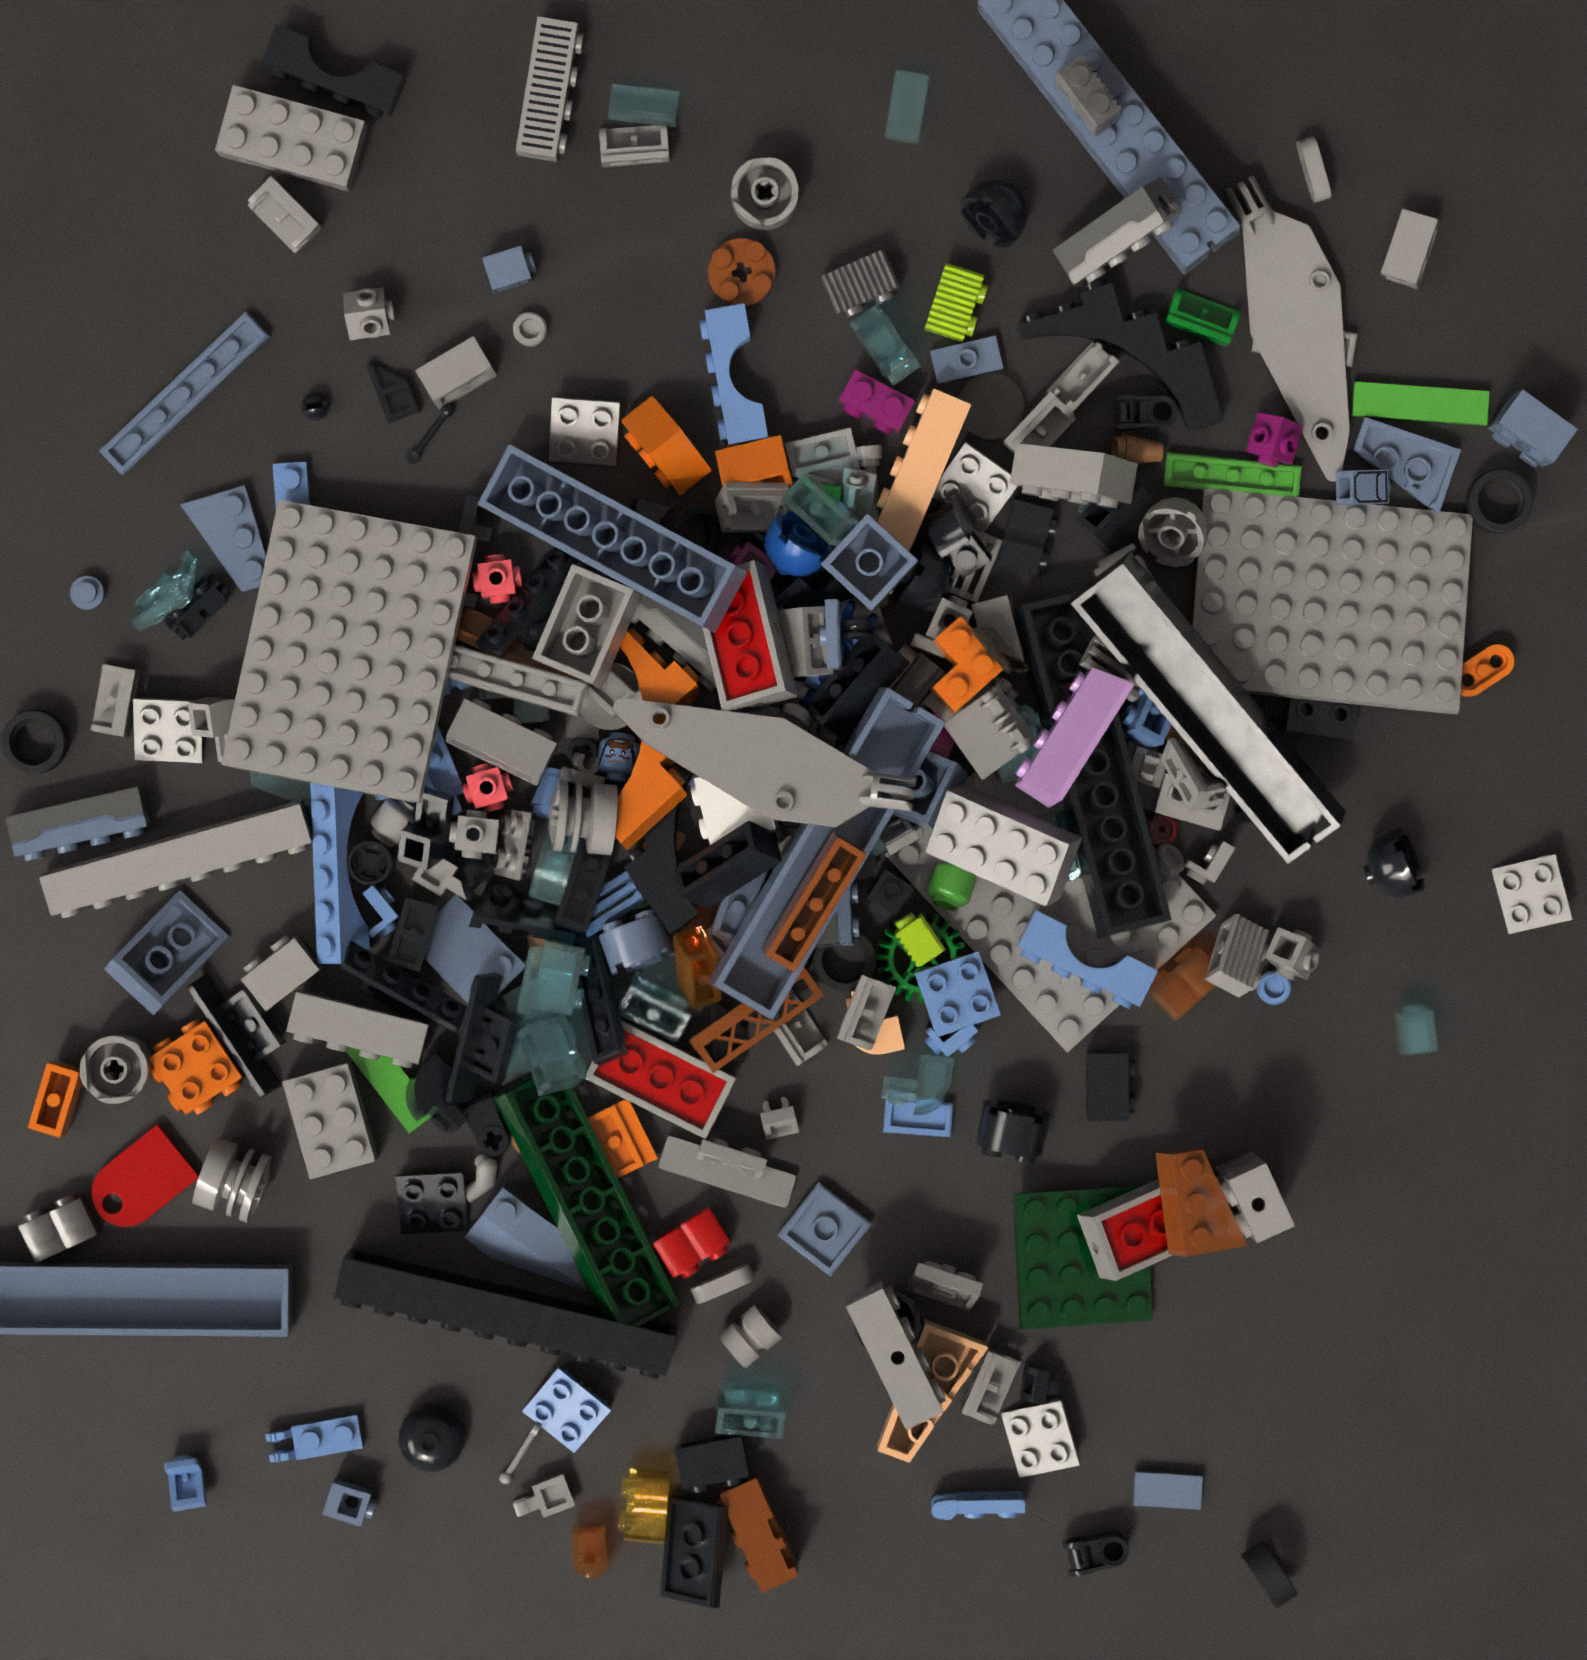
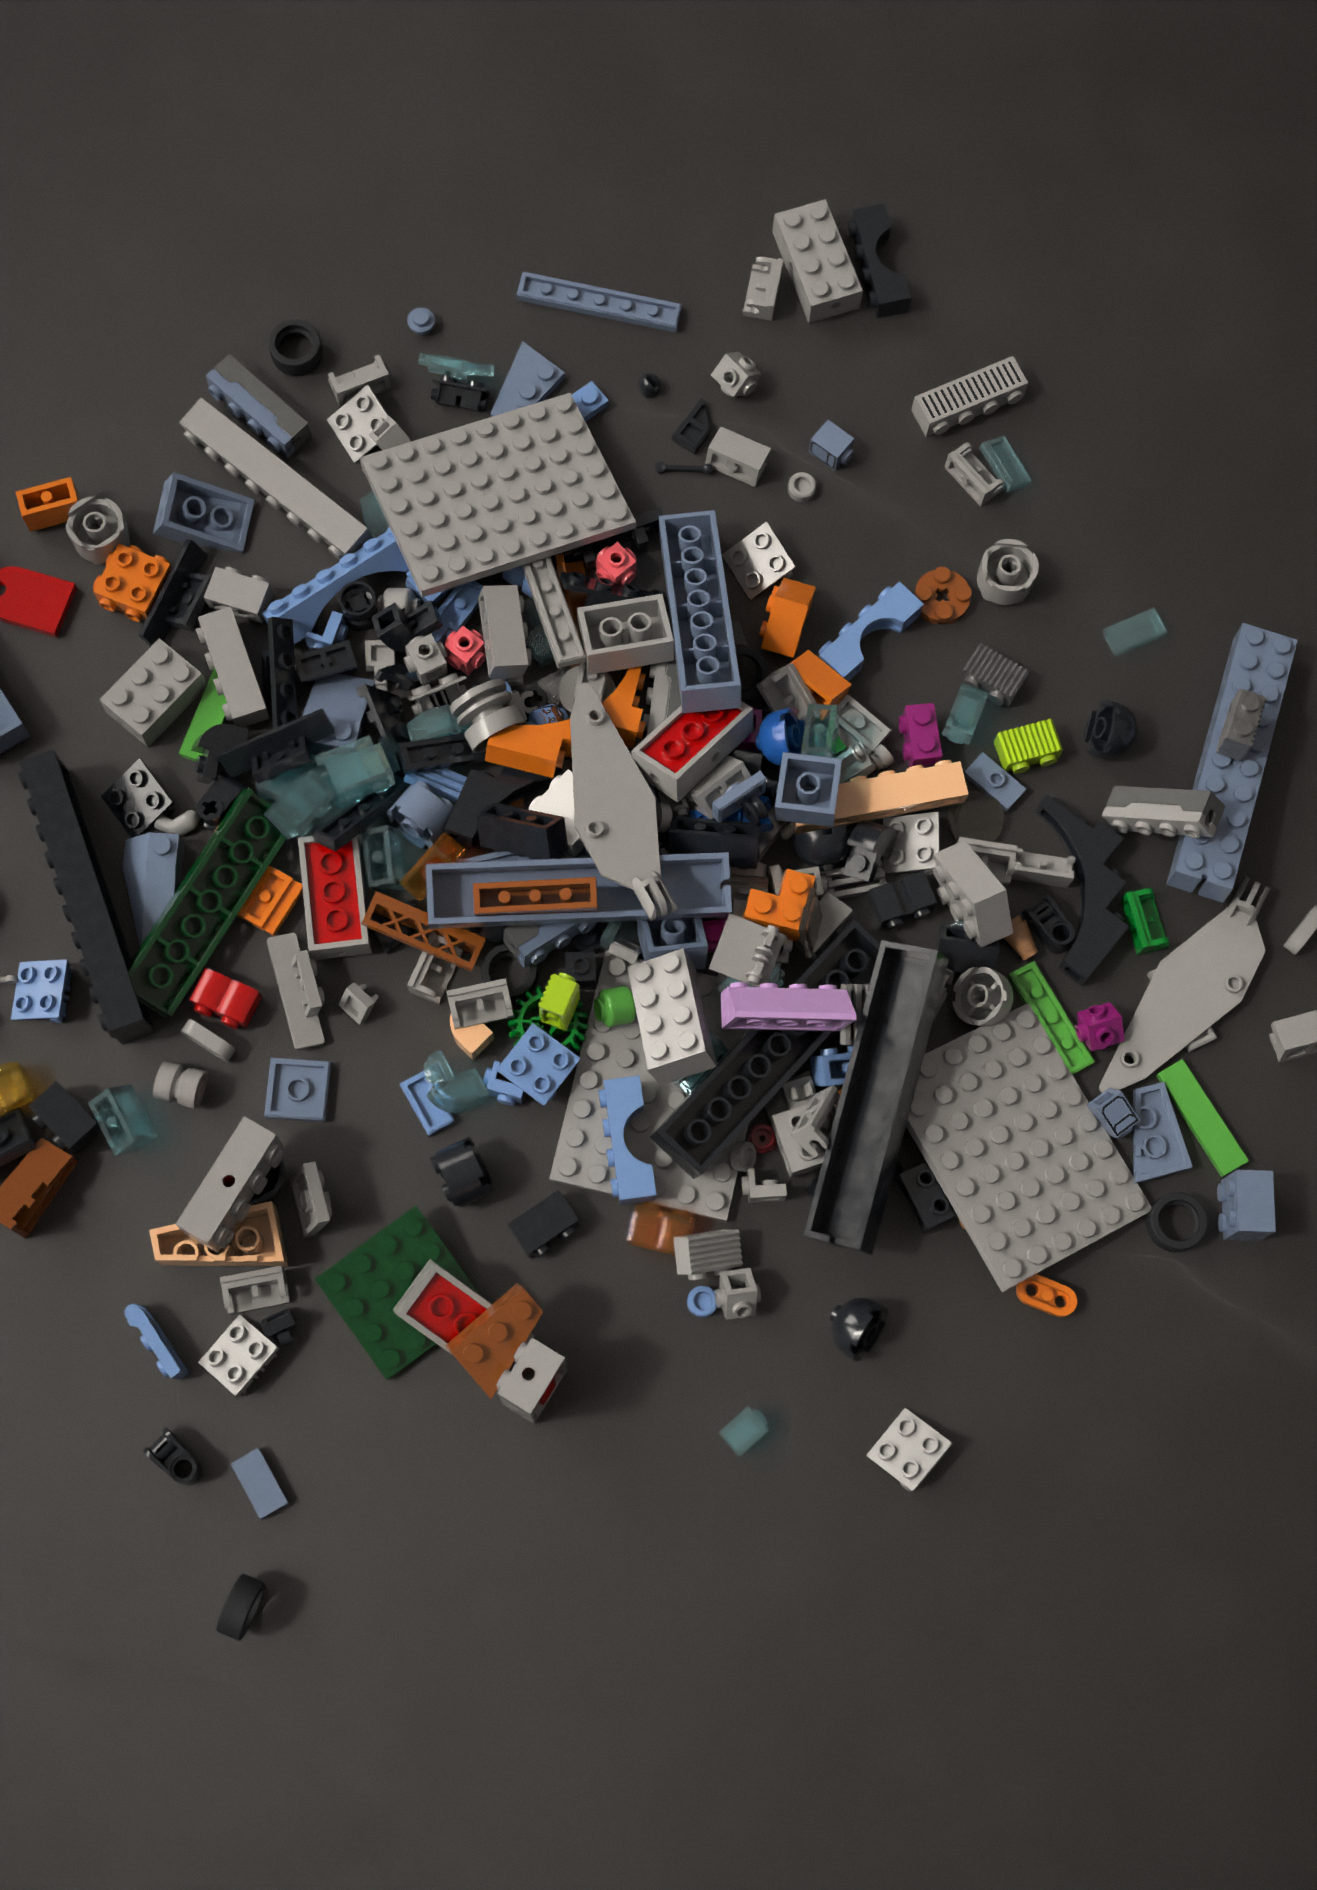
camera: 50 degrees right, 15 degrees down
(232, 1179) = (65, 649): light grey wheel -> none

